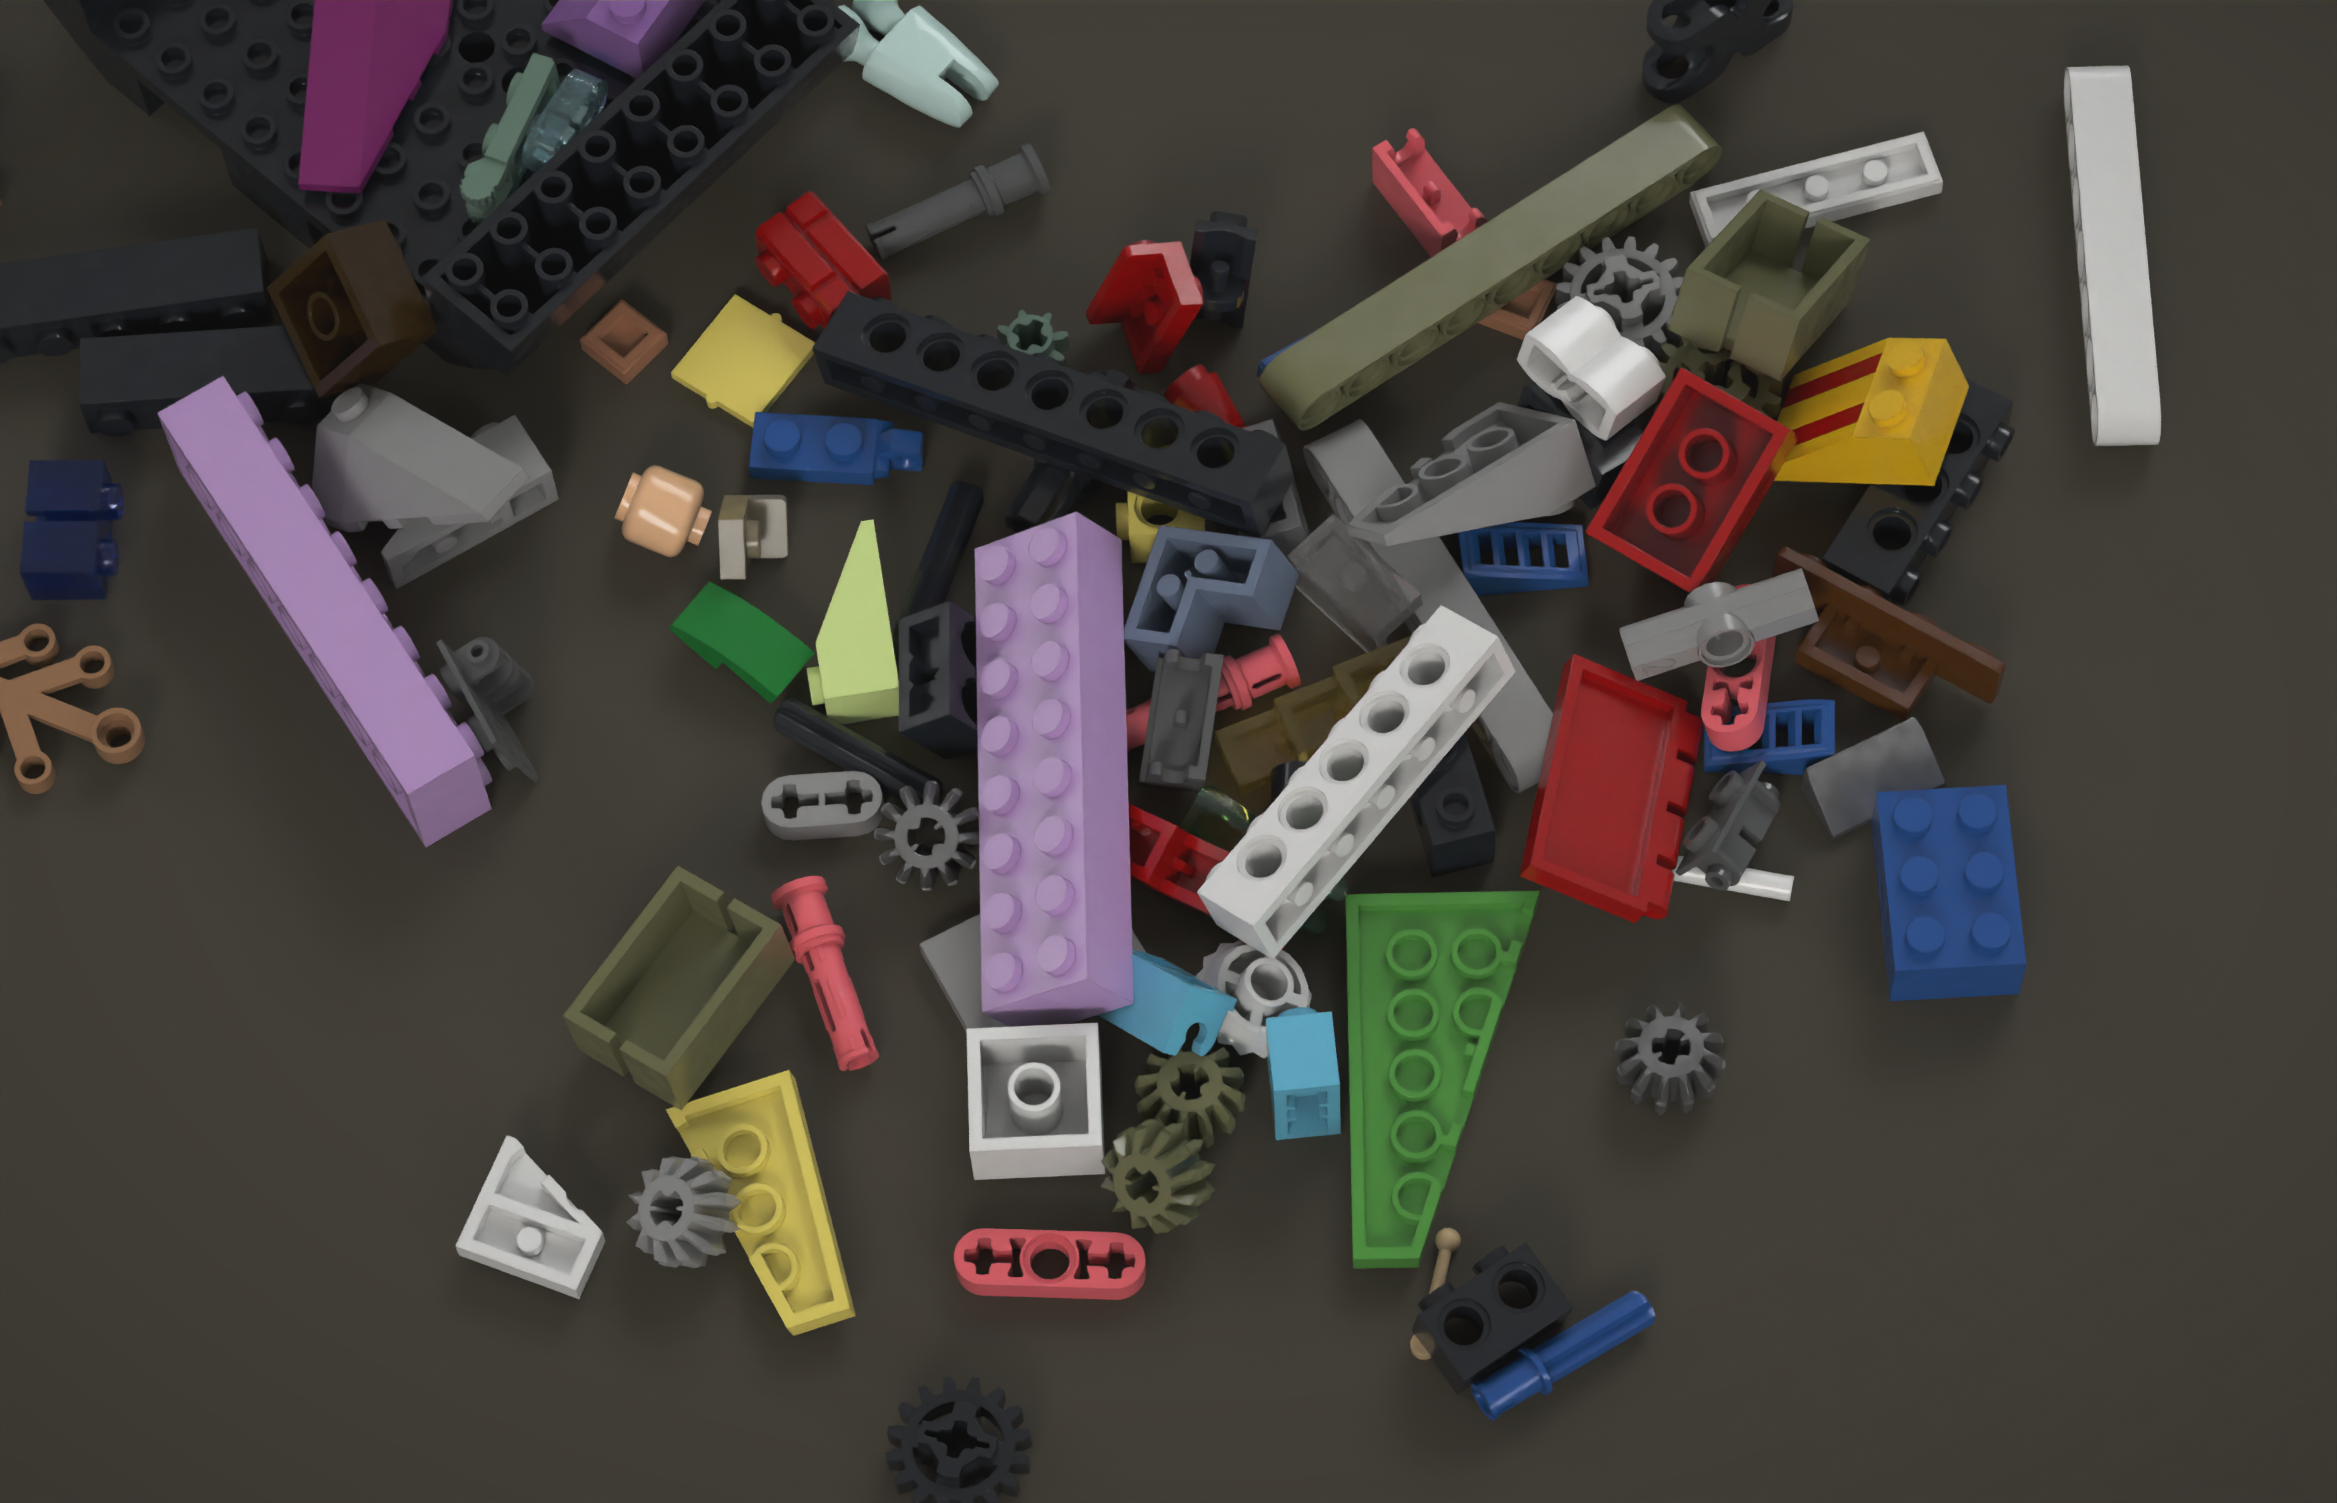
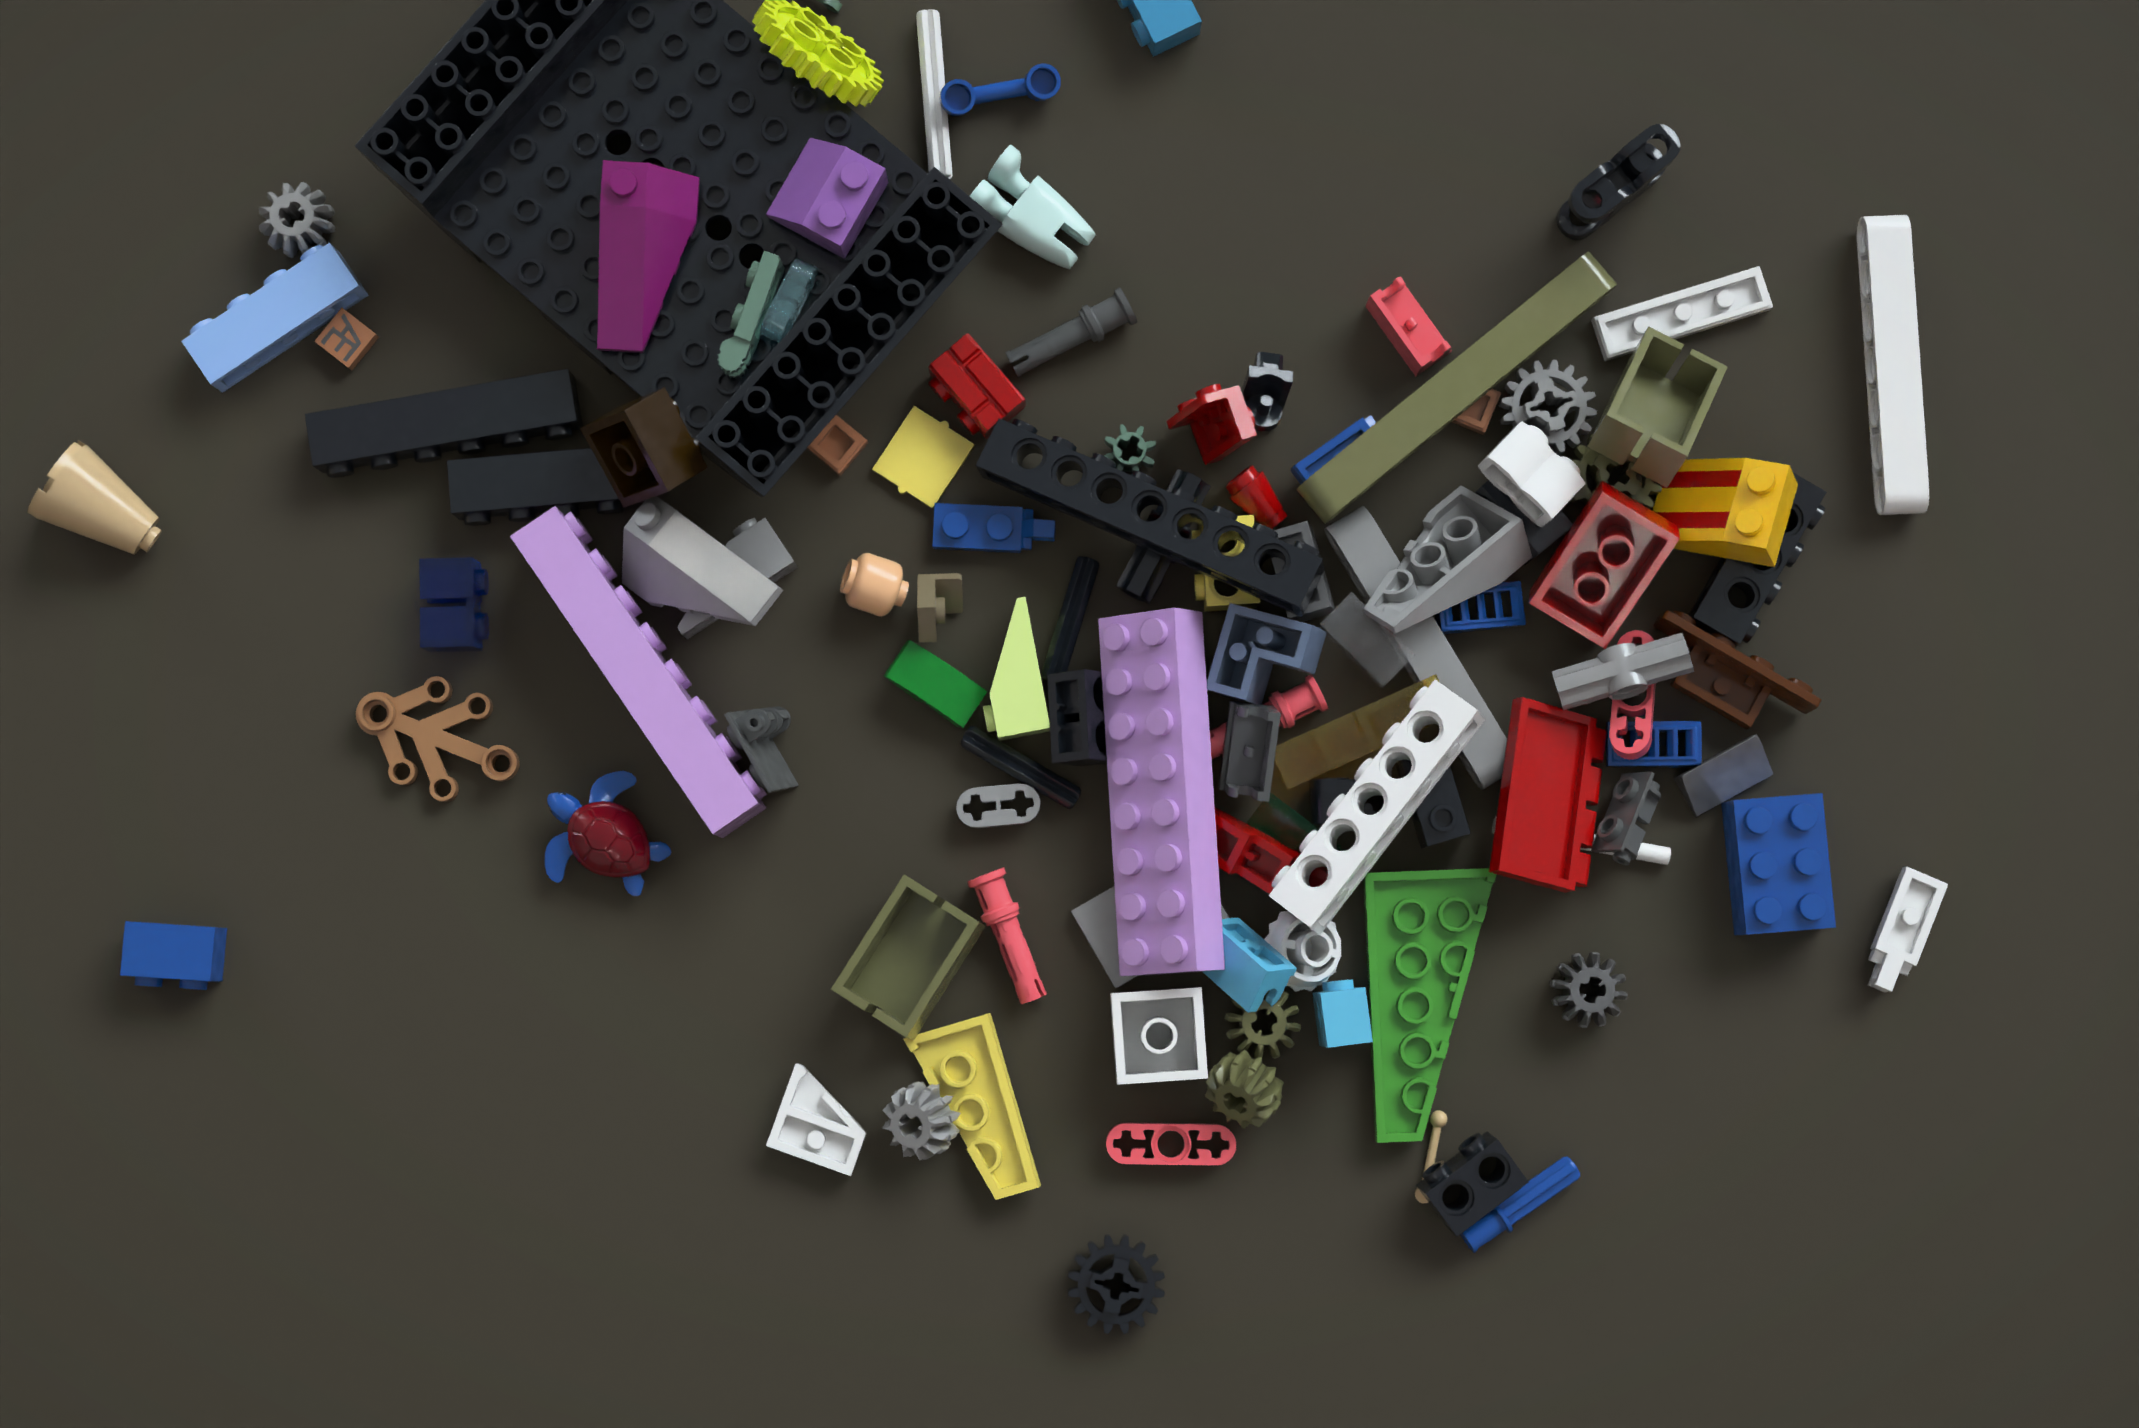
camera: 10 degrees left, 20 degrees up
(254, 829) = (602, 835): none -> animal
(916, 818) = (1084, 851): flat silver gear -> none
(2136, 984) = (1904, 927): none -> white hinge

